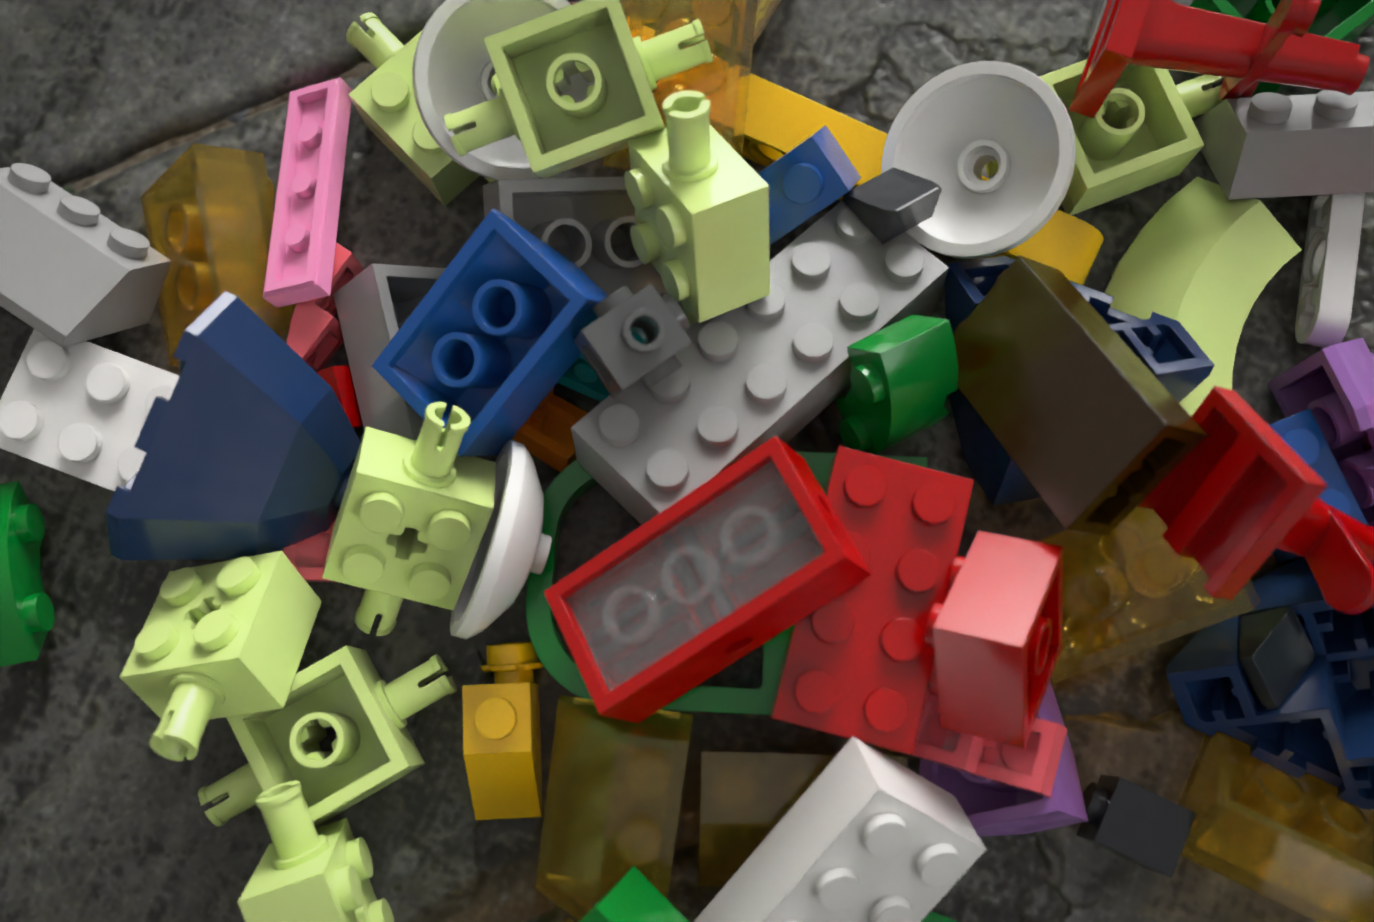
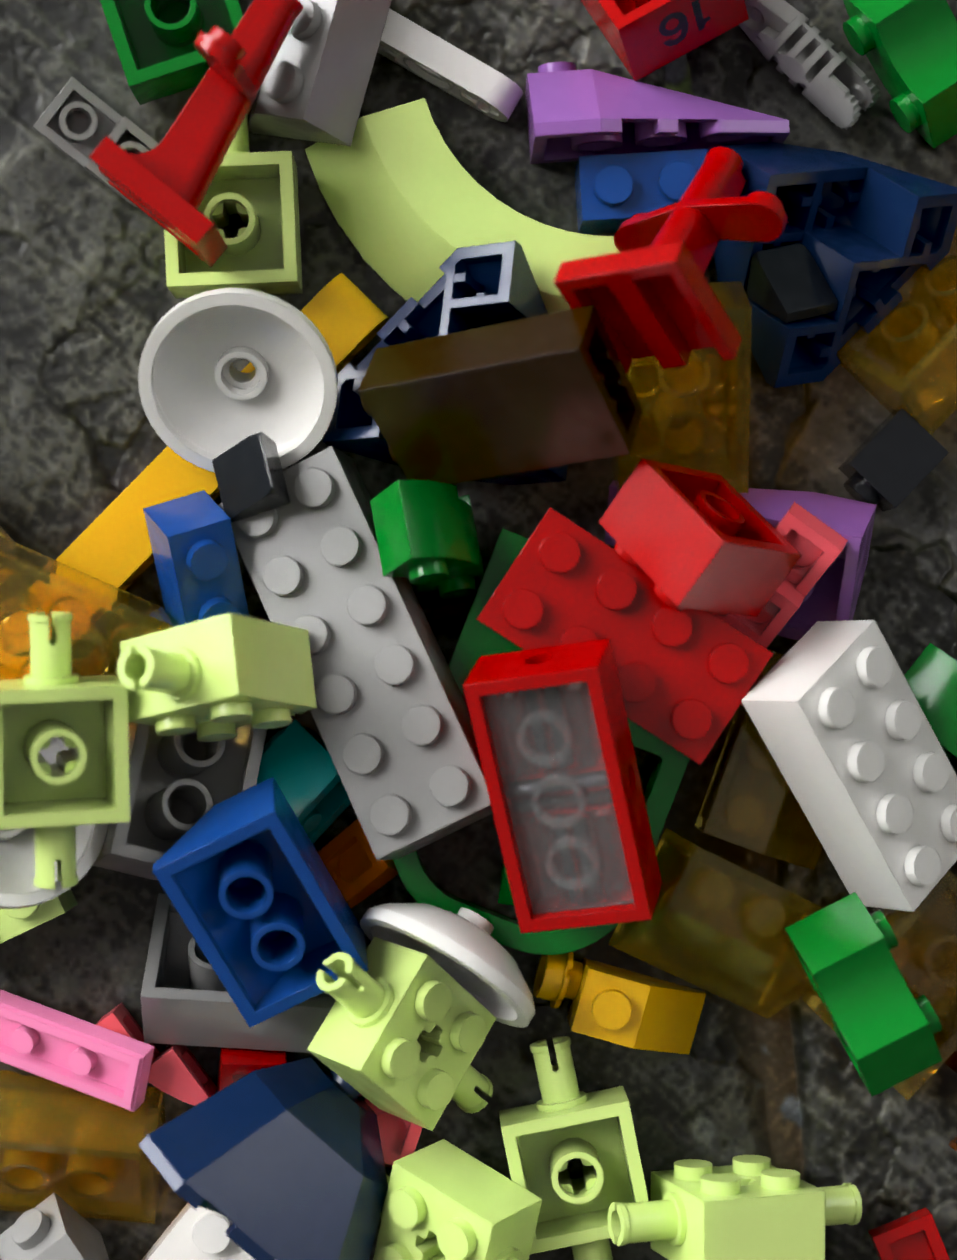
camera: 75 degrees left, 10 degrees up
(615, 353) = (314, 802): dark grey brick -> none

